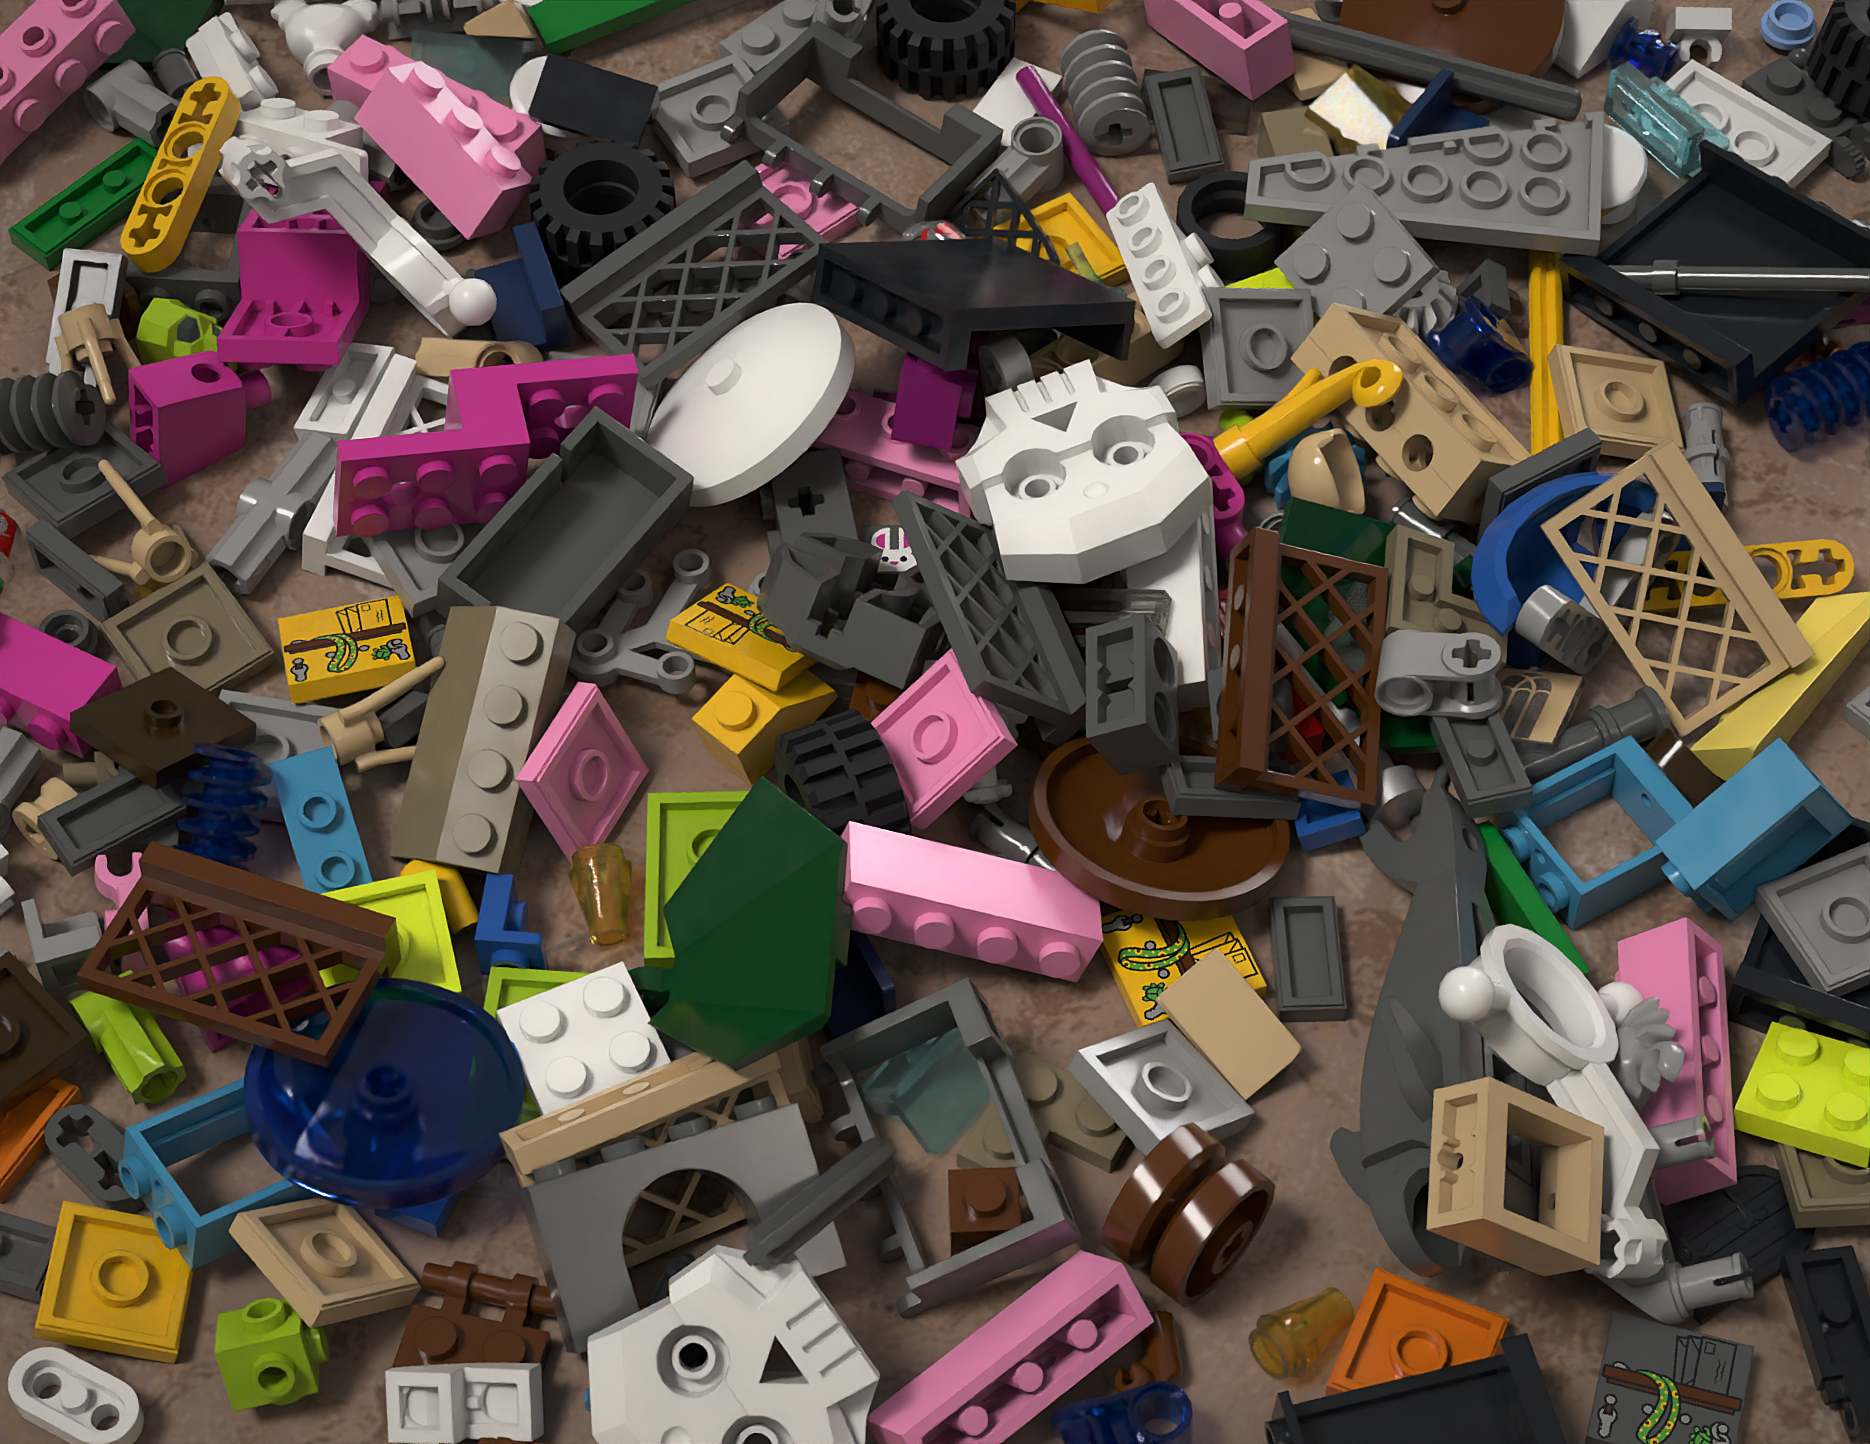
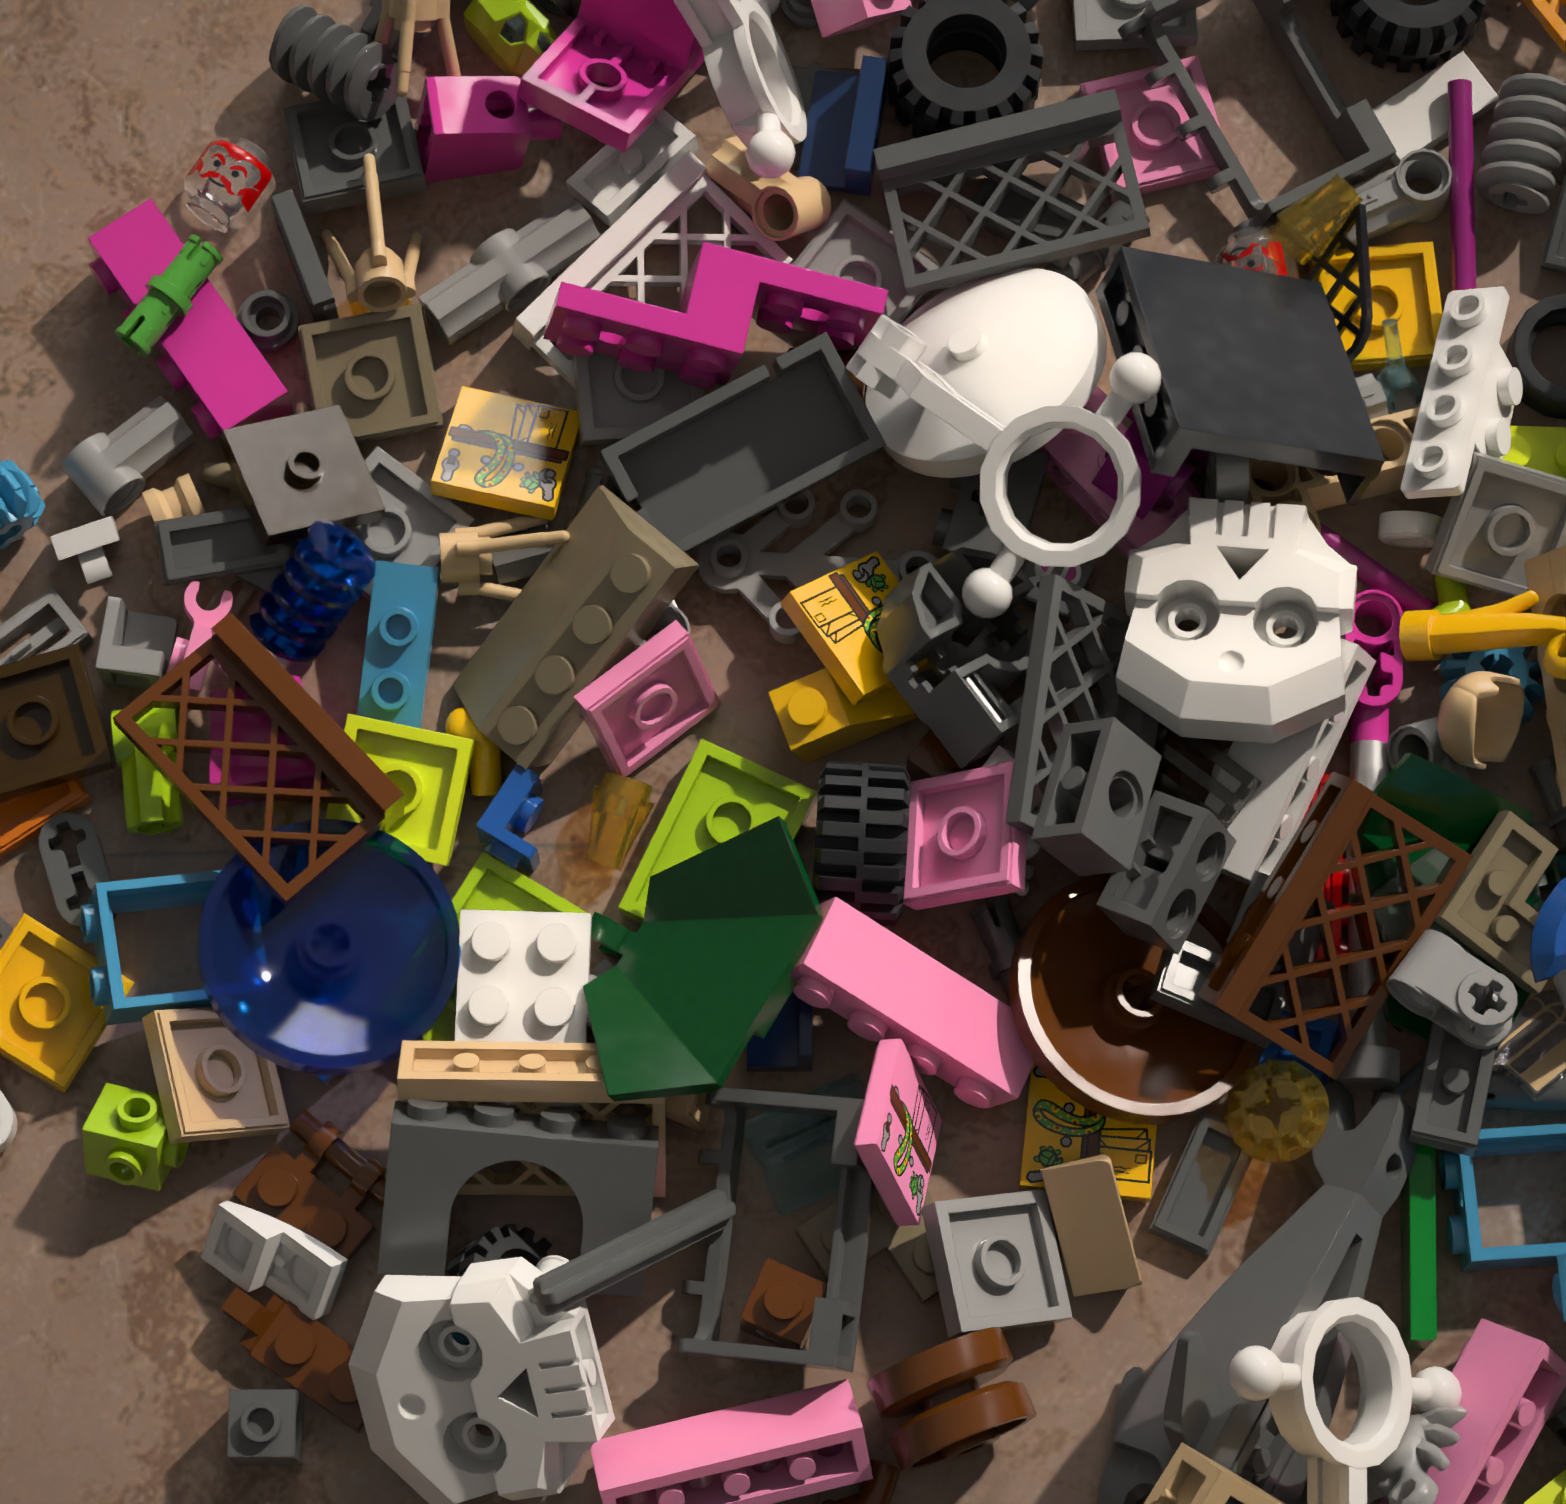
camera: 25 degrees right, 20 degrees up
(669, 403) = (891, 361): none -> white piece
(967, 191) = (1315, 220): none -> clear yellow cone
(1011, 1009) = (898, 1132): none -> bright pink tile
(1039, 645) = (1096, 797): none -> dark grey brick
(1328, 884) = (1298, 1128): none -> clear yellow gear

